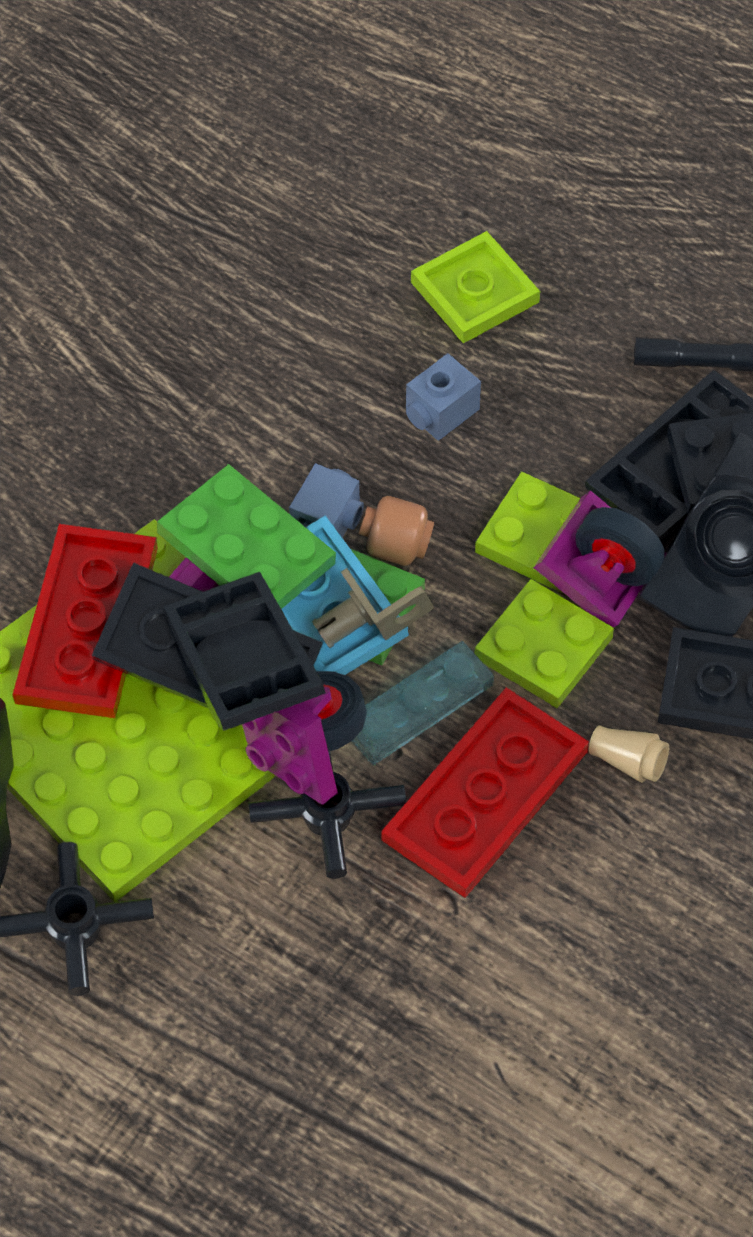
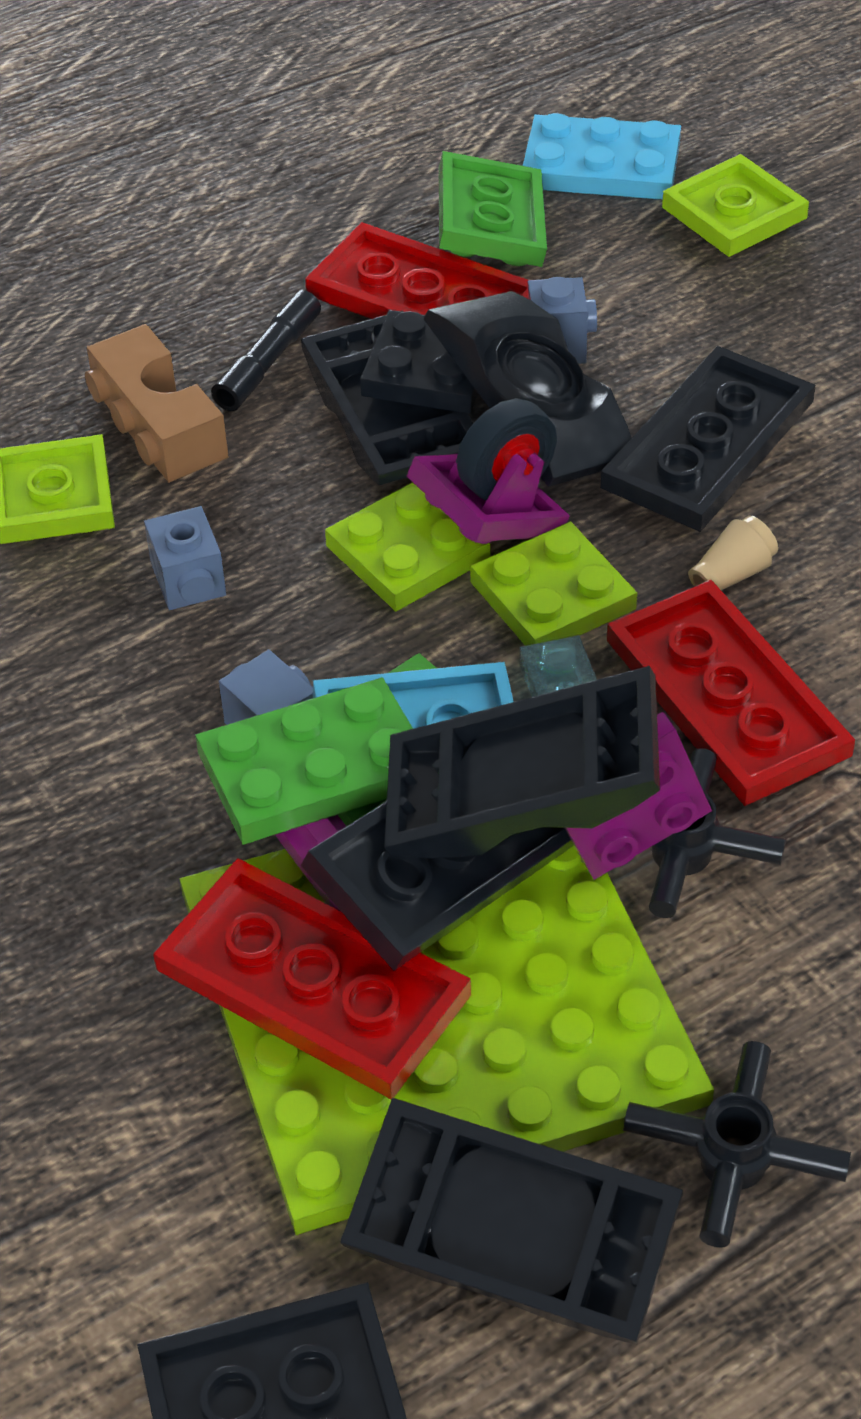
camera: 65 degrees left, 10 degrees down
(358, 611) = (478, 673): dark tan bracket -> none
(396, 530) = (343, 646): nougat head -> none
(612, 281) = (170, 427): none -> medium nougat arch

